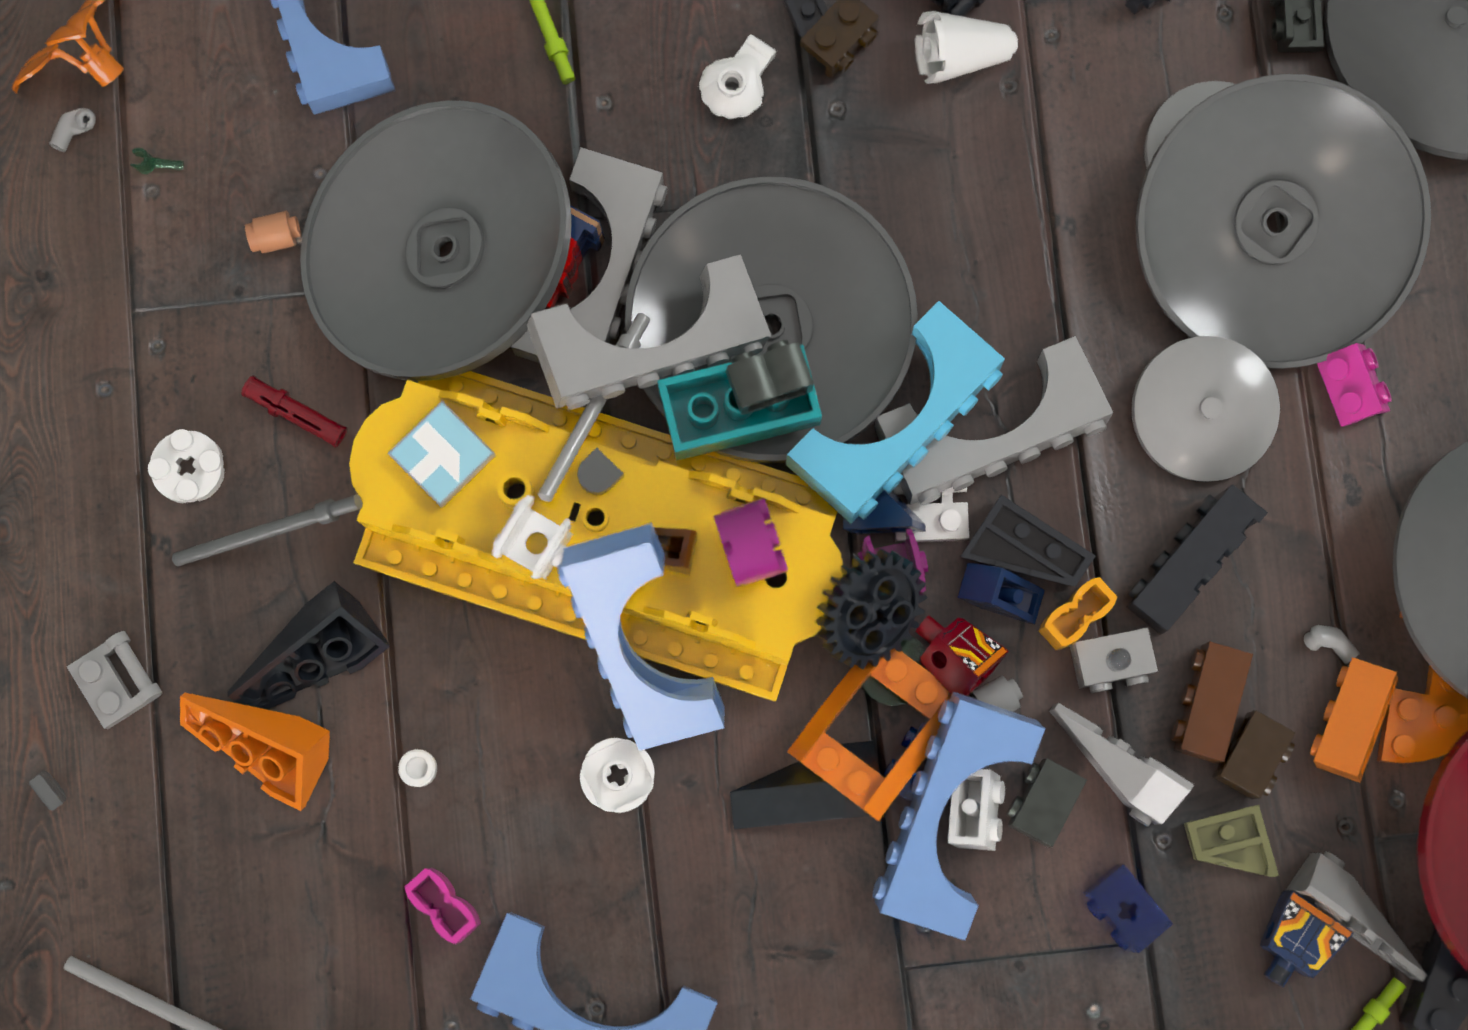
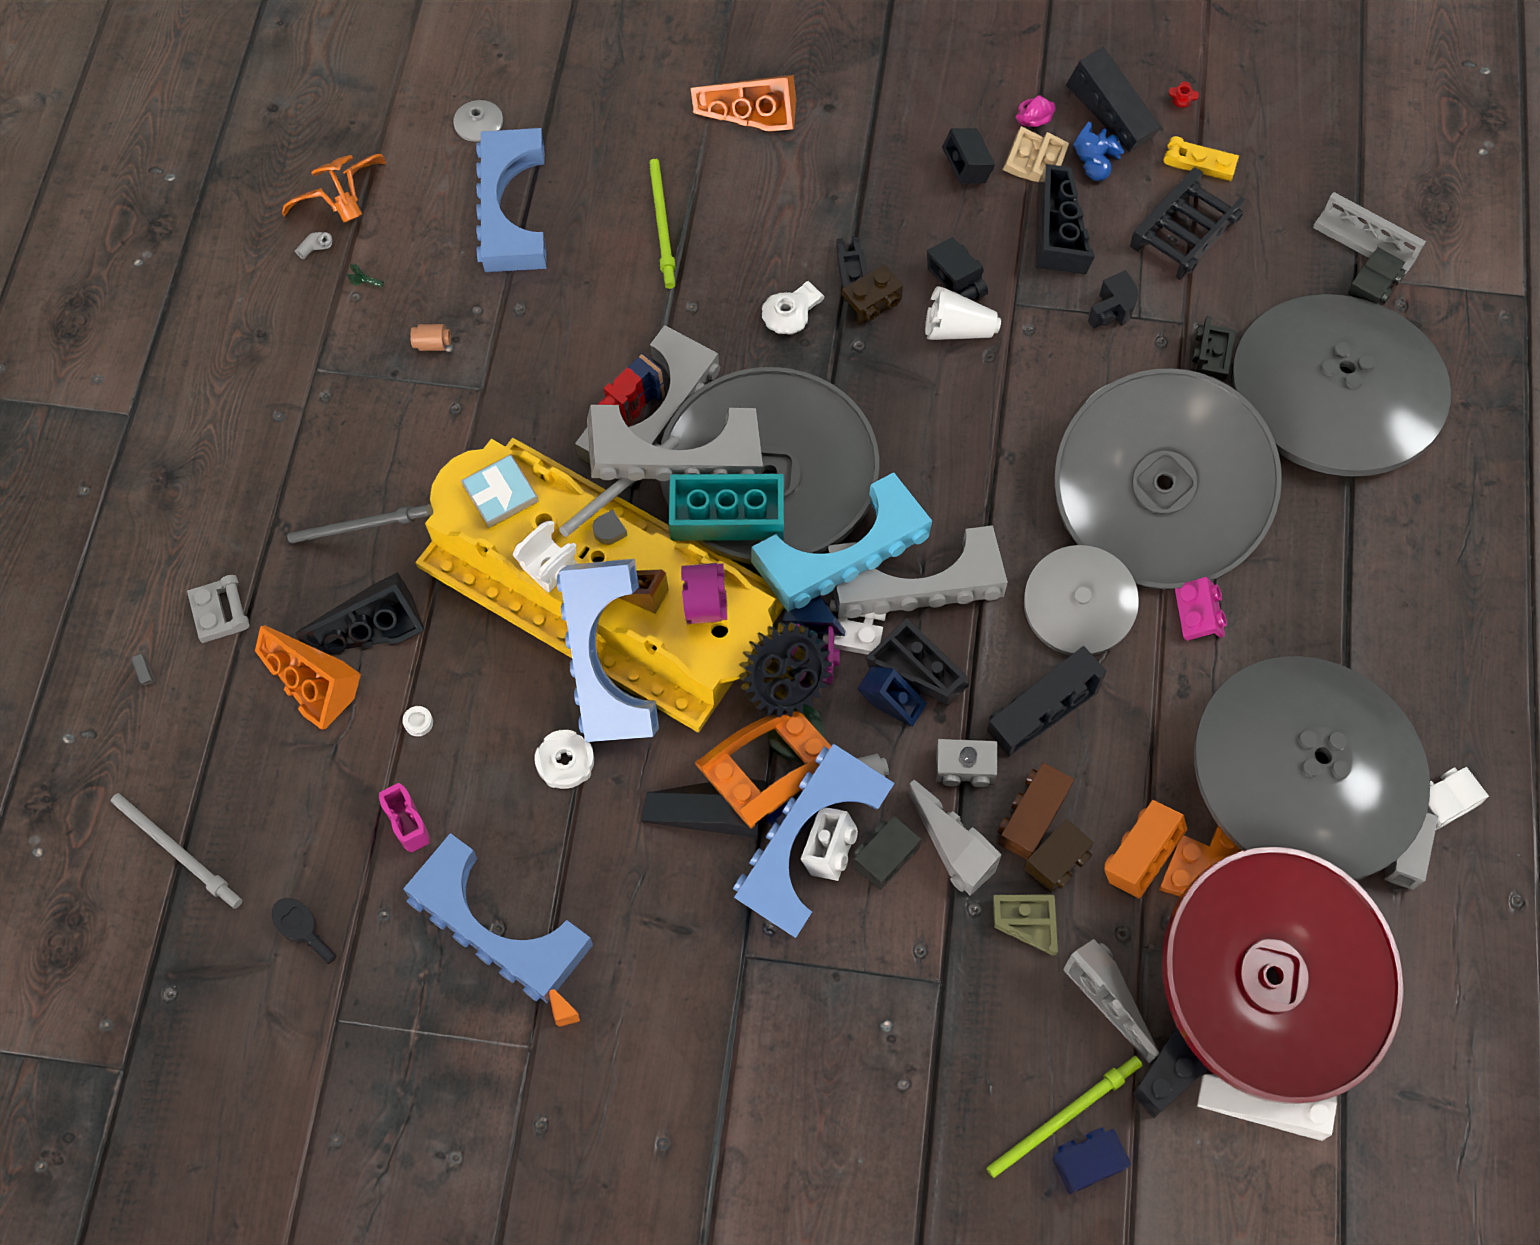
camera: 15 degrees right, 15 degrees down
(182, 446) = (319, 463): white plate -> none
(280, 403) = (399, 450): dark red pin -> none
(392, 205) = (500, 360): dark grey dish -> none
(769, 377) = (751, 486): pearl dark grey brick -> none
(959, 654) = (848, 727): dark red torso -> none
(1083, 608) = (950, 719): light orange brick -> none
(1147, 917) = (930, 932): clear blue brick -> none
(1300, 938) = (1065, 1005): torso -> none
(1331, 638) = (1140, 786): light grey arm -> none

